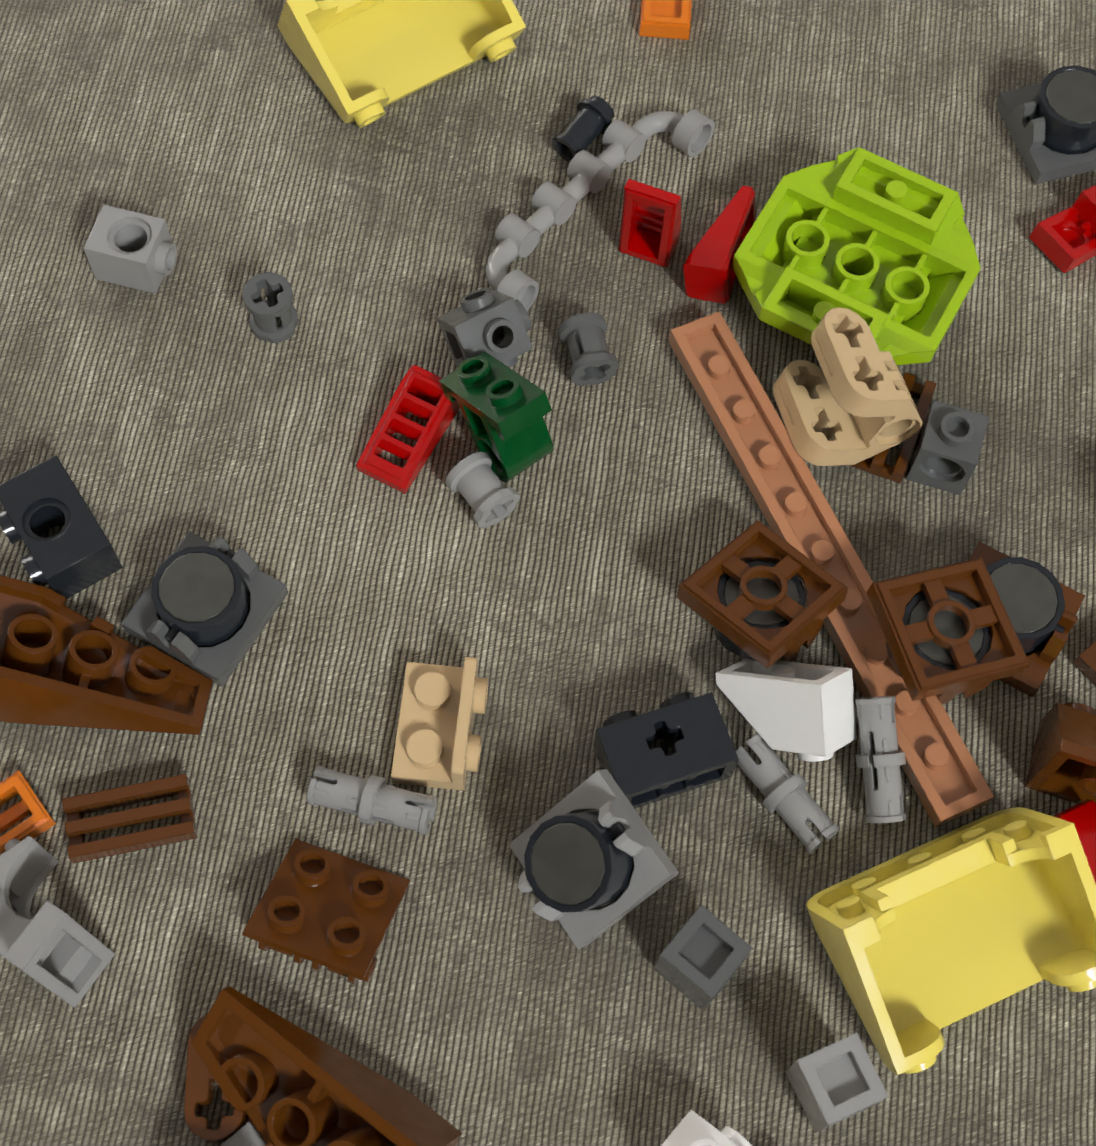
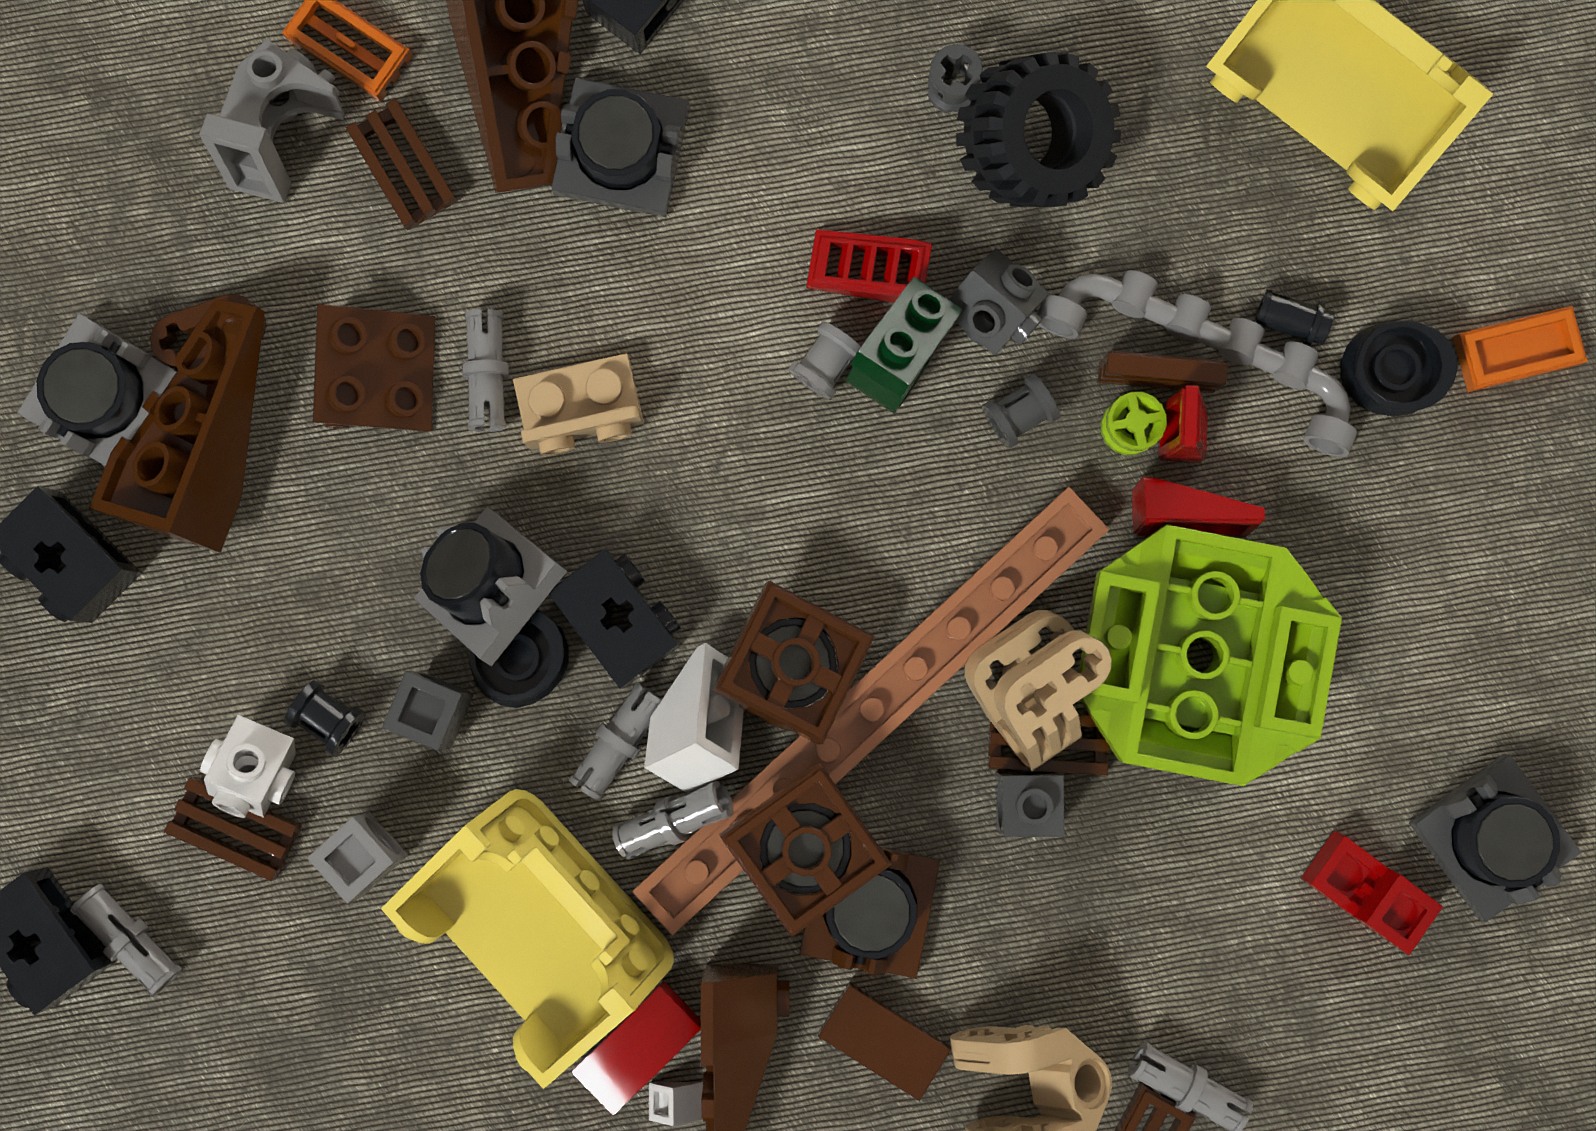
camera: 75 degrees right, 20 degrees up
(349, 247) = (1079, 124): none -> black tyre
(593, 233) = (1161, 371): none -> reddish brown tile
(631, 256) = (1144, 419): none -> lime wheel
(653, 70) = (1398, 367): none -> black piece
(675, 1080) = (324, 718): none -> black bush
(694, 853) = (528, 665): none -> black piece

